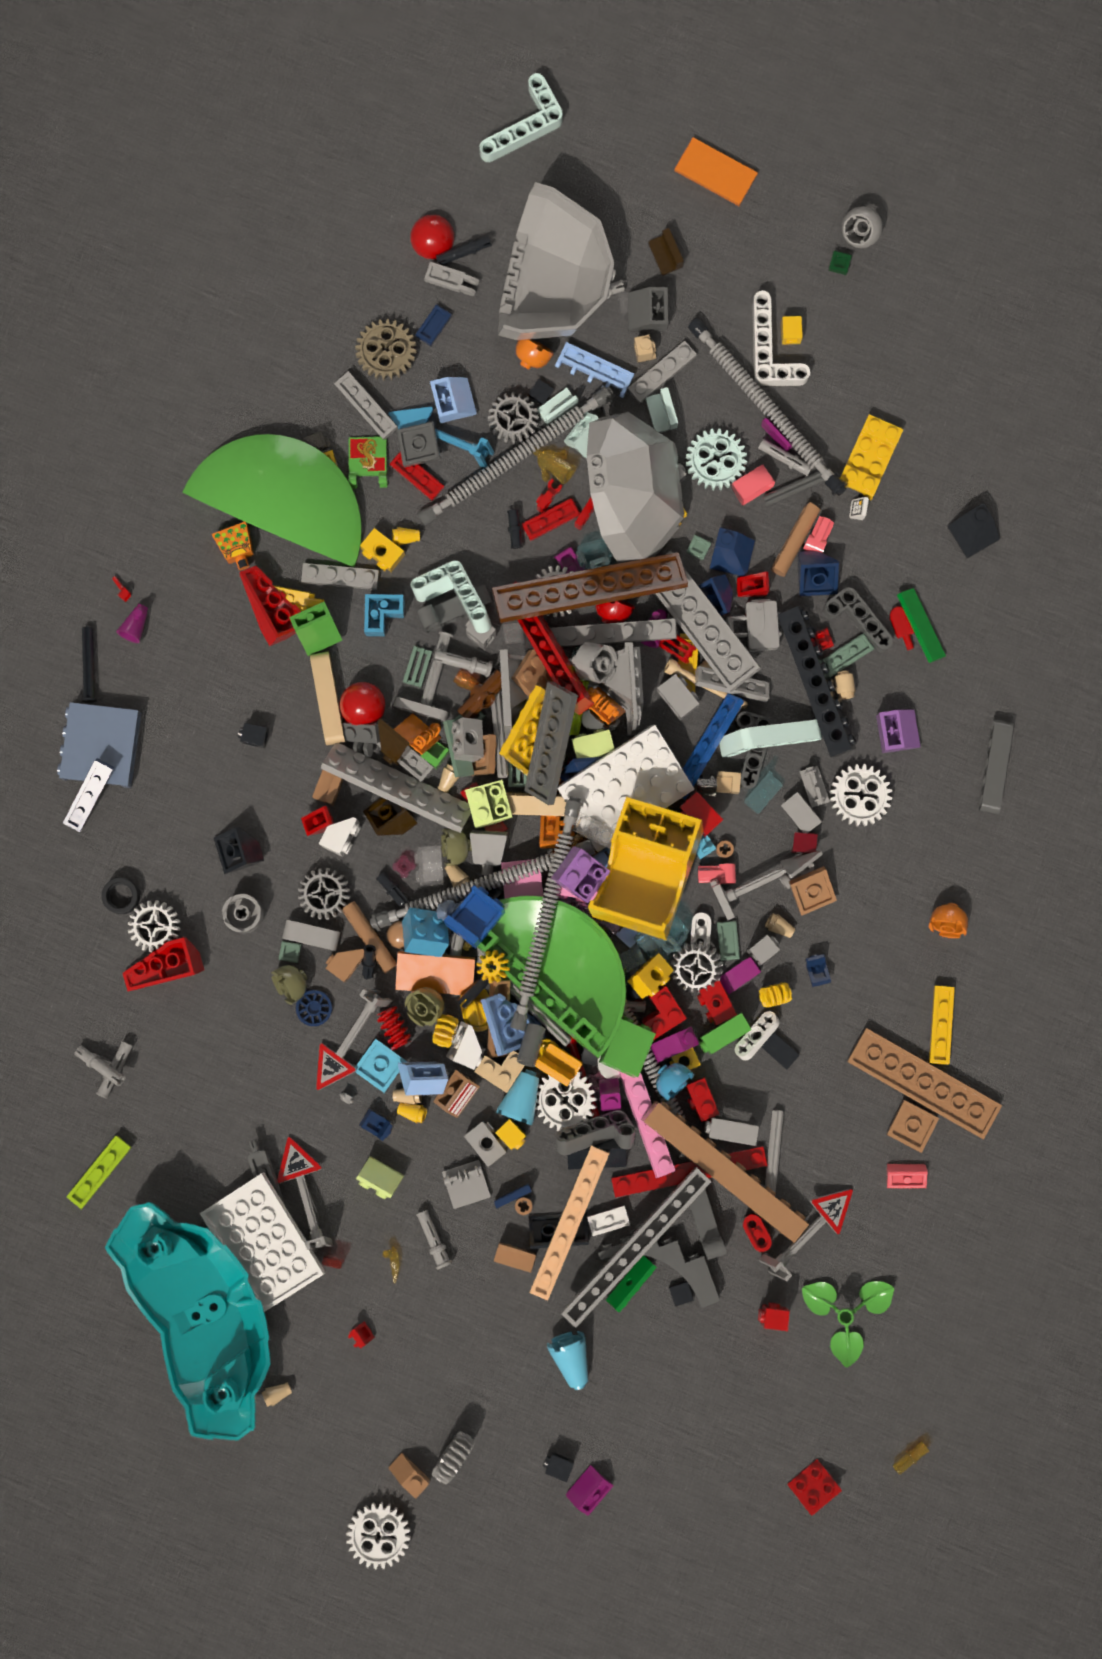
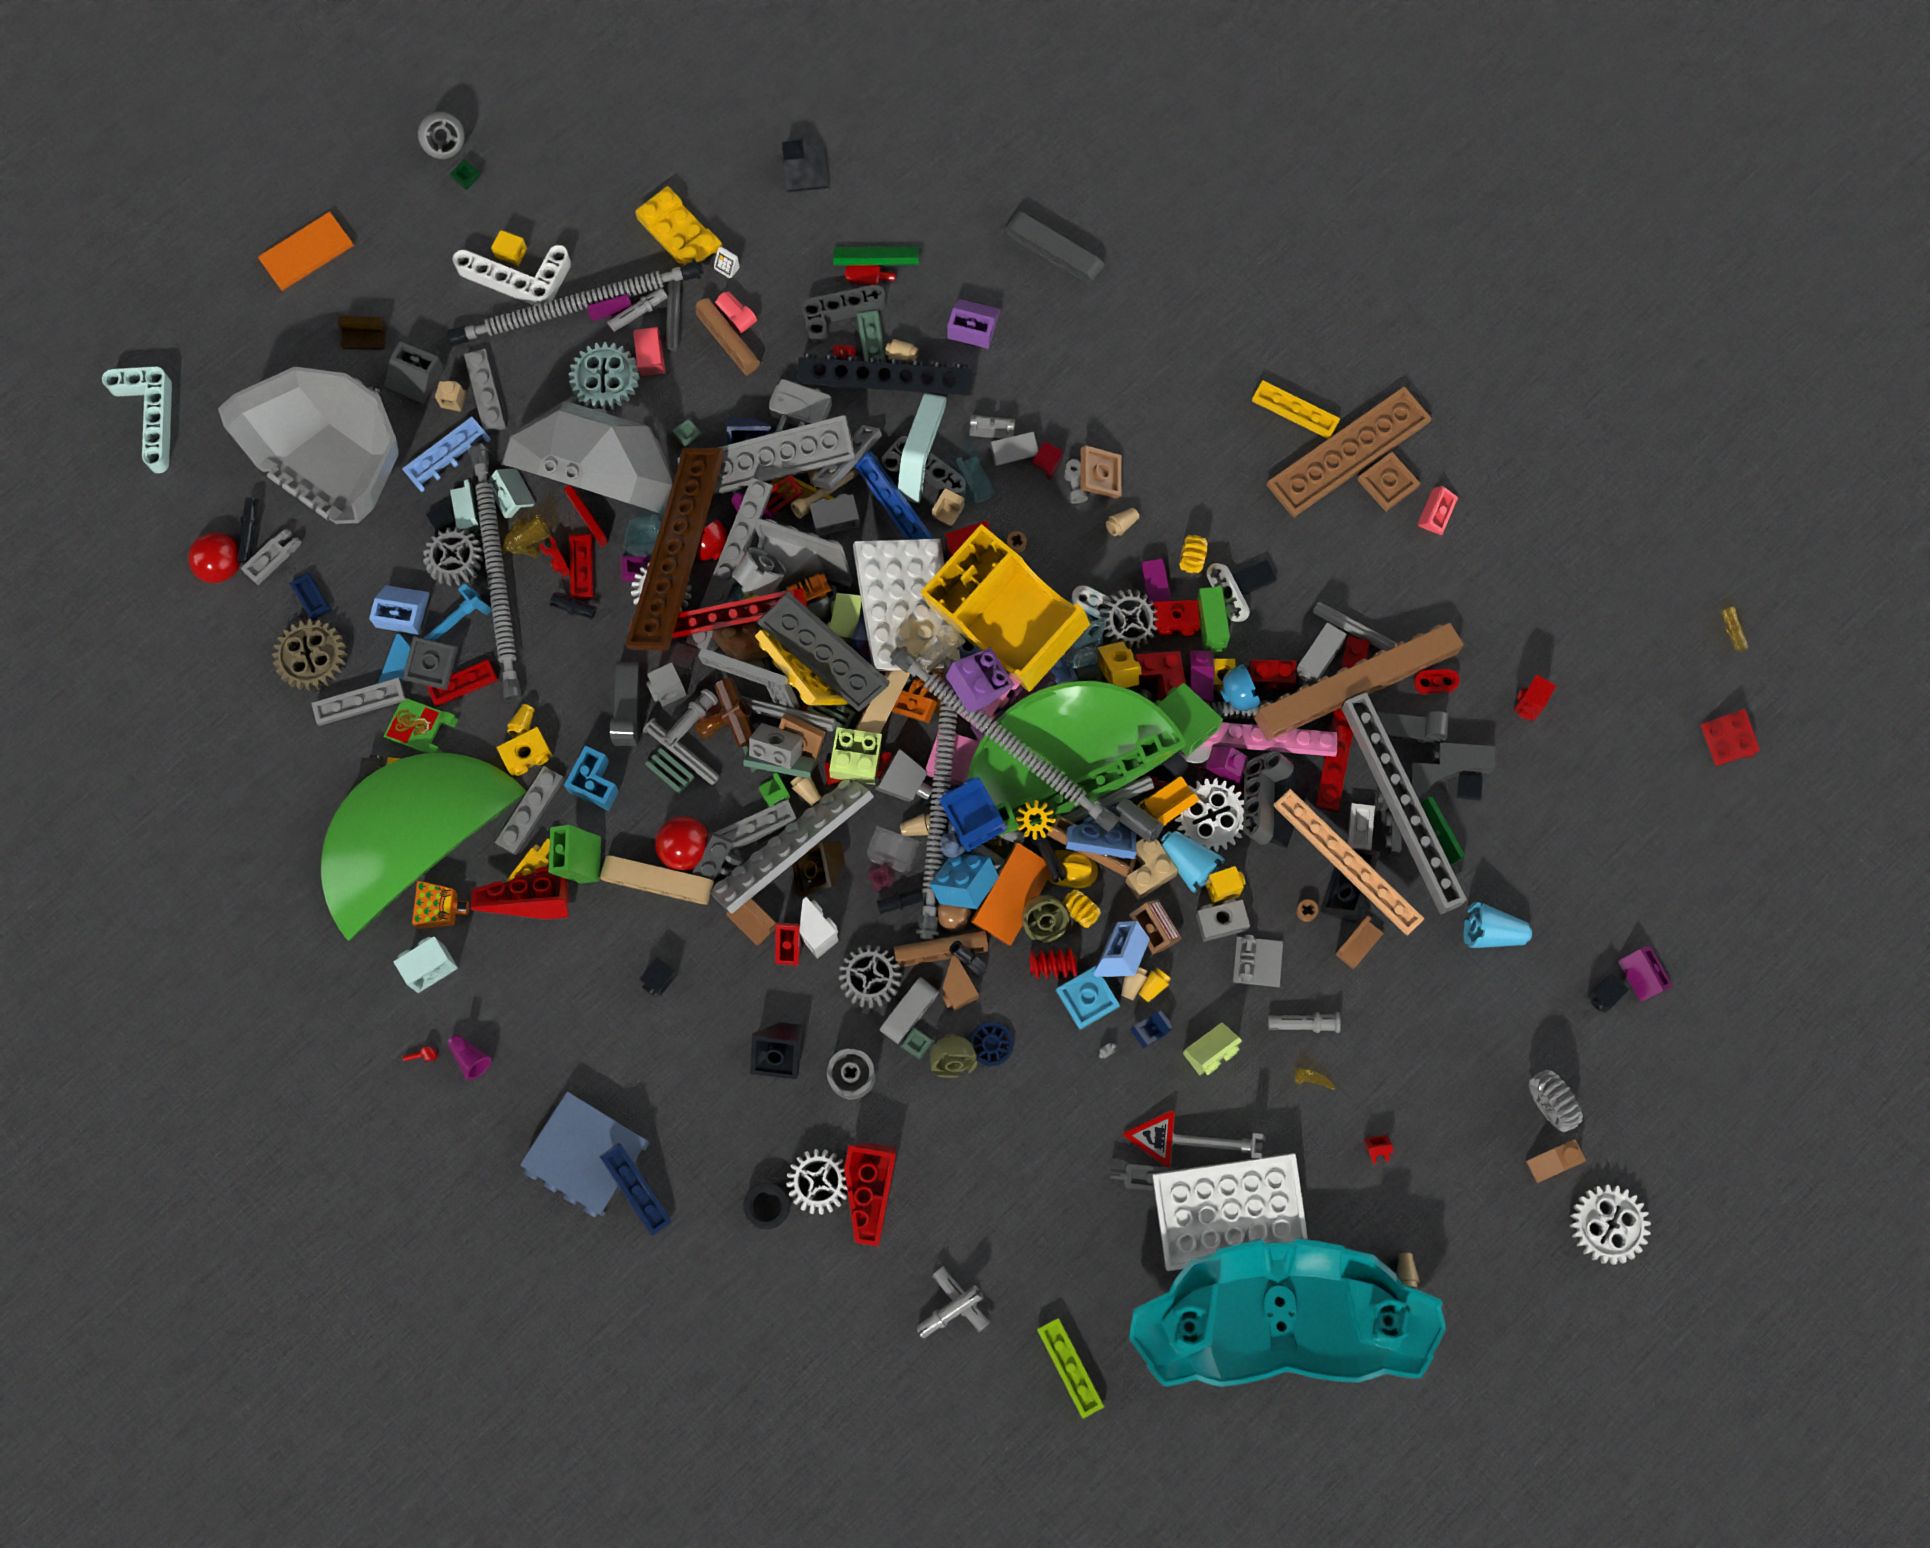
camera: 65 degrees left, 10 degrees down
(88, 665) = (488, 1129): black axle -> none
(185, 559) = (425, 964): none -> light aqua brick
(332, 1262) = (1284, 1143): clear red tile -> none
(333, 1065) = (1065, 1049): light grey piece -> none
(392, 744) = (740, 825): dark brown slope -> none
(418, 733) = (744, 799): orange hinge -> none
(420, 709) = (717, 786): light grey beam -> none
(454, 577) = (594, 684): light aqua beam -> none
(454, 847) = (885, 812): olive cylinder -> none
(465, 1047) = (1109, 892): white slope -> none
(512, 1195) = (1292, 920): dark blue tile -> none
(533, 353) = (395, 506): orange cylinder -> none
(662, 411) = (524, 405): light aqua panel -> none
(707, 787) = (941, 526): clear smoke tile -> none
(723, 873) = (1041, 555): coral piece -> none
(728, 940) = (1113, 579): sand green tile -> none
(732, 552) = (708, 403): dark blue slope -> none
(753, 585) = (754, 394): red slope -> none
(763, 949) = (1141, 544): light grey brick -> none
(790, 866) = (1066, 477): light grey piece -> none
(817, 574) = (773, 329): dark blue slope -> none
(817, 970) = (1186, 503): dark blue bracket -> none
(822, 1295) = (1531, 648): bright green plant -> none
(831, 1210) = (1443, 596): light grey piece -> none
(859, 812) = (1006, 377): white gear -> none
(949, 921) = (1193, 355): orange cylinder -> none

